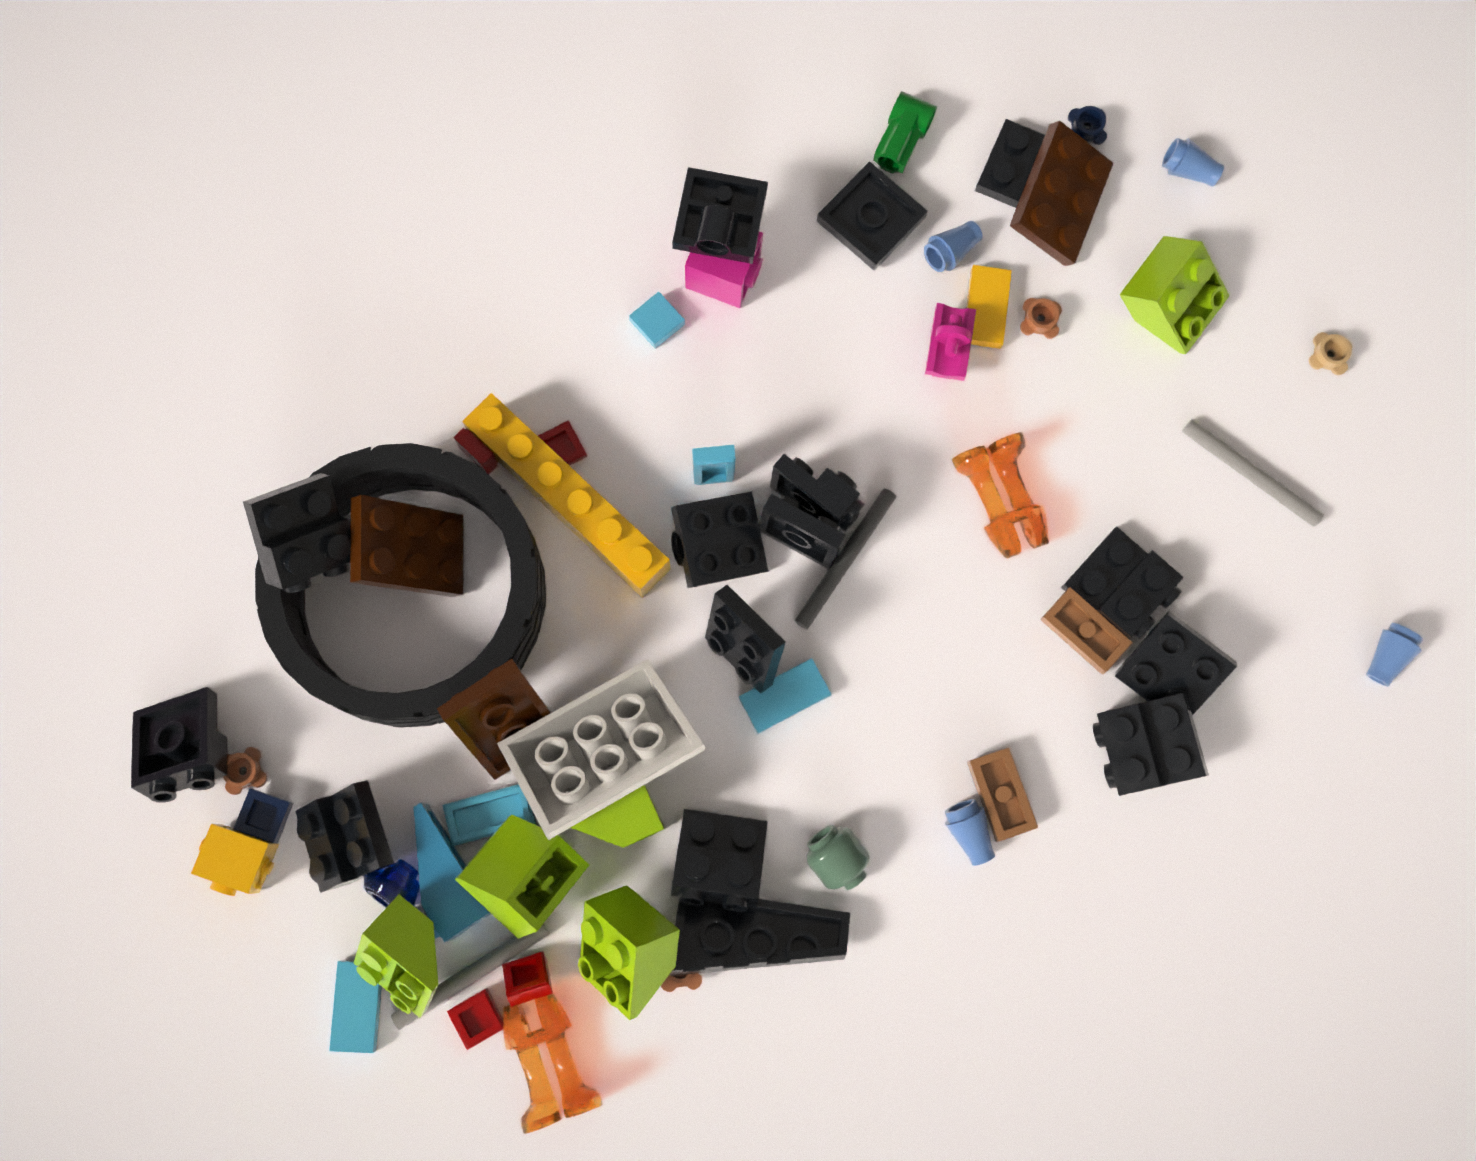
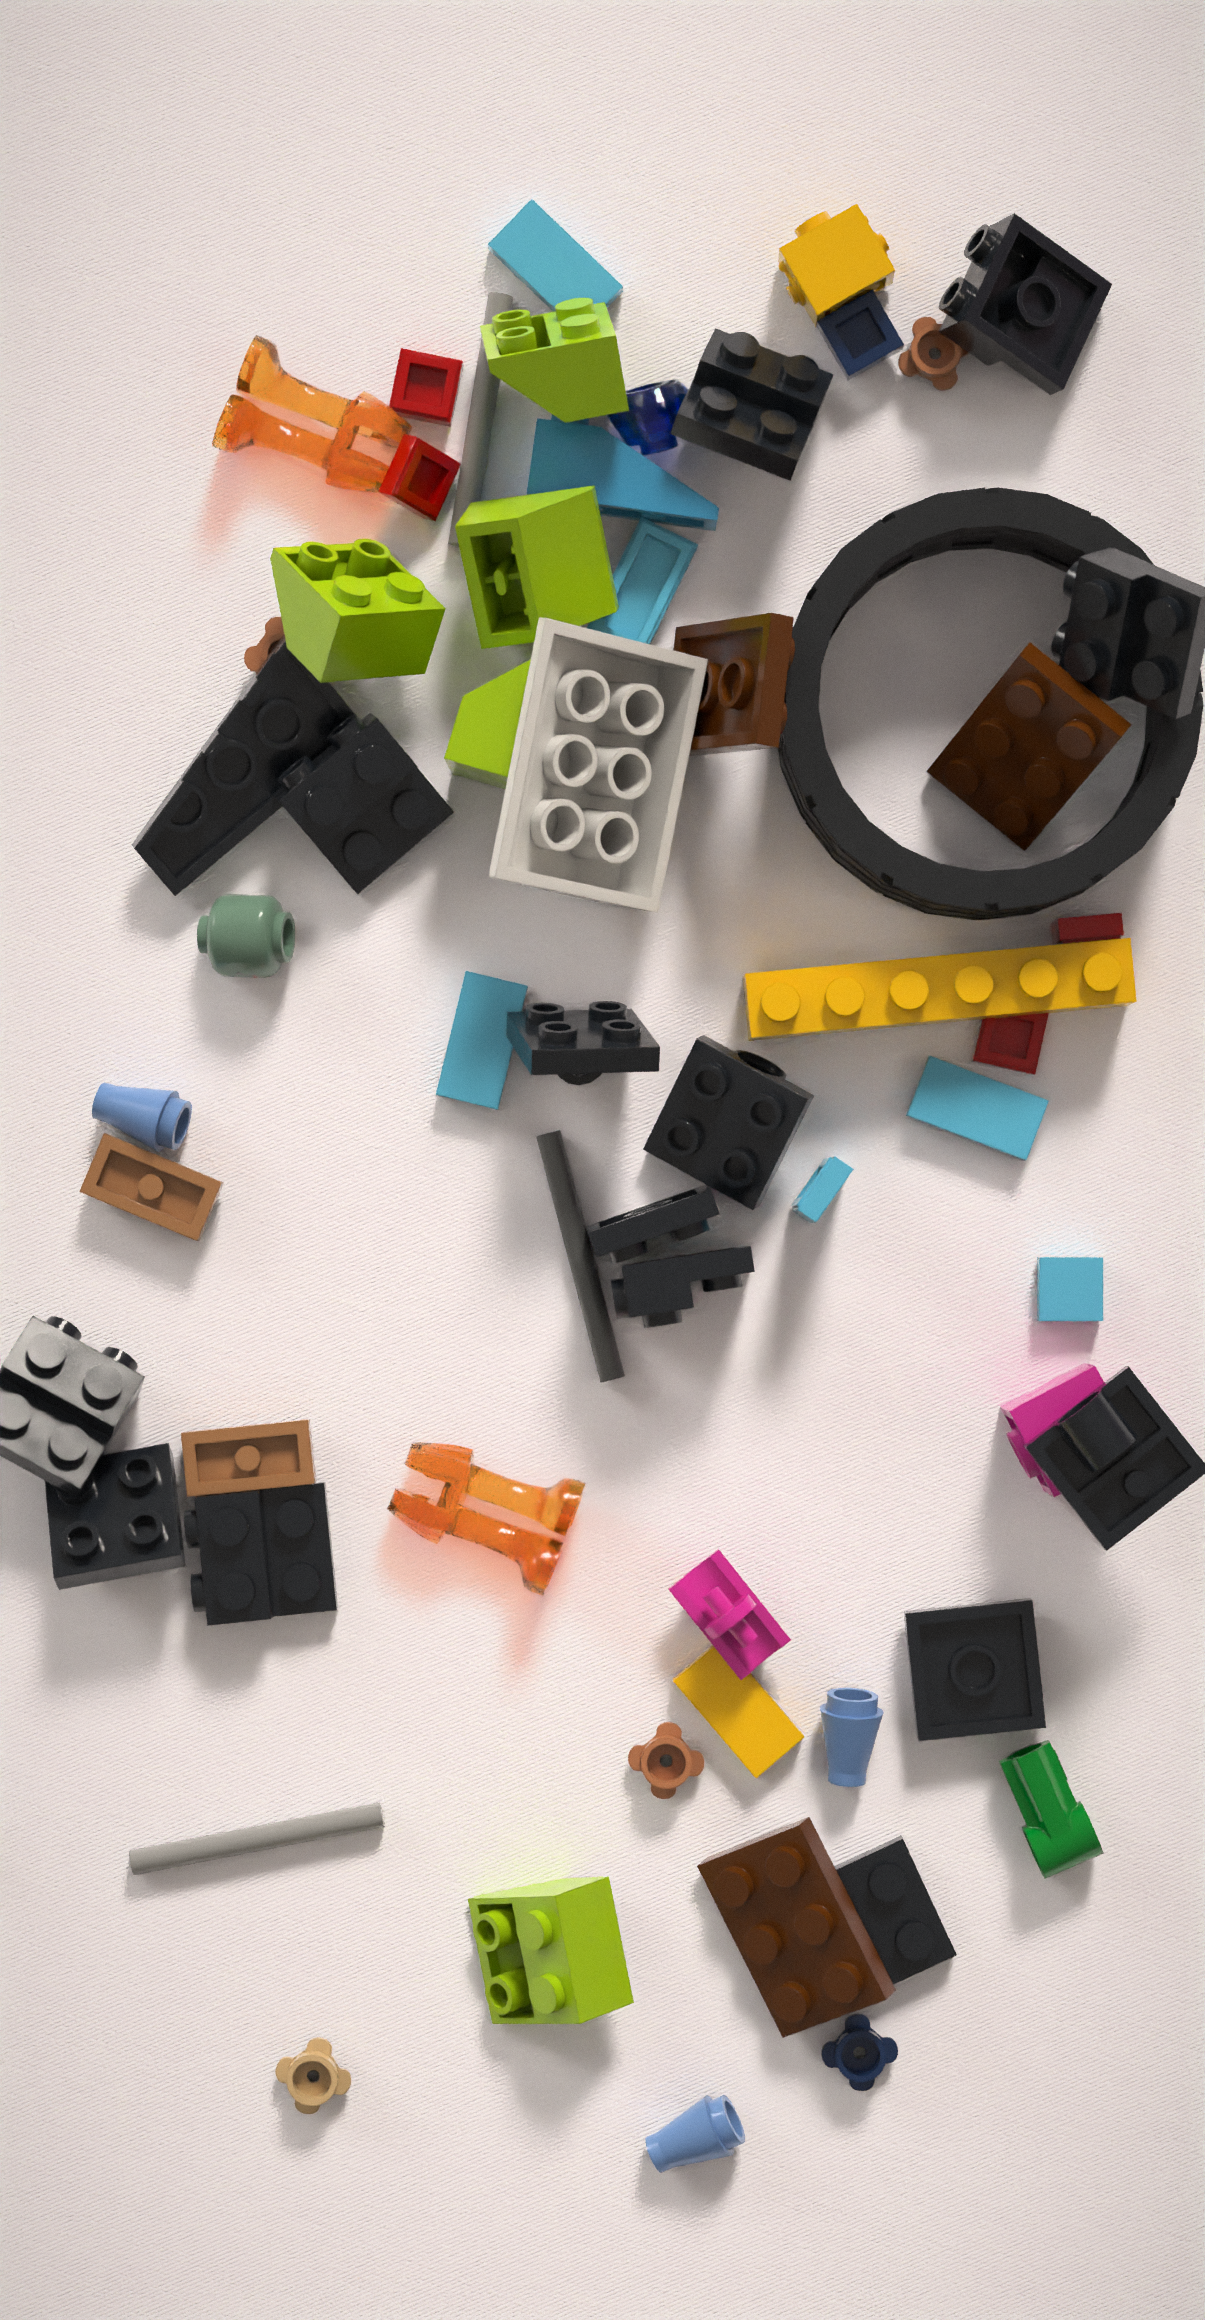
camera: 140 degrees right, 10 degrees up
(608, 433) = (977, 1108): none -> medium azure tile

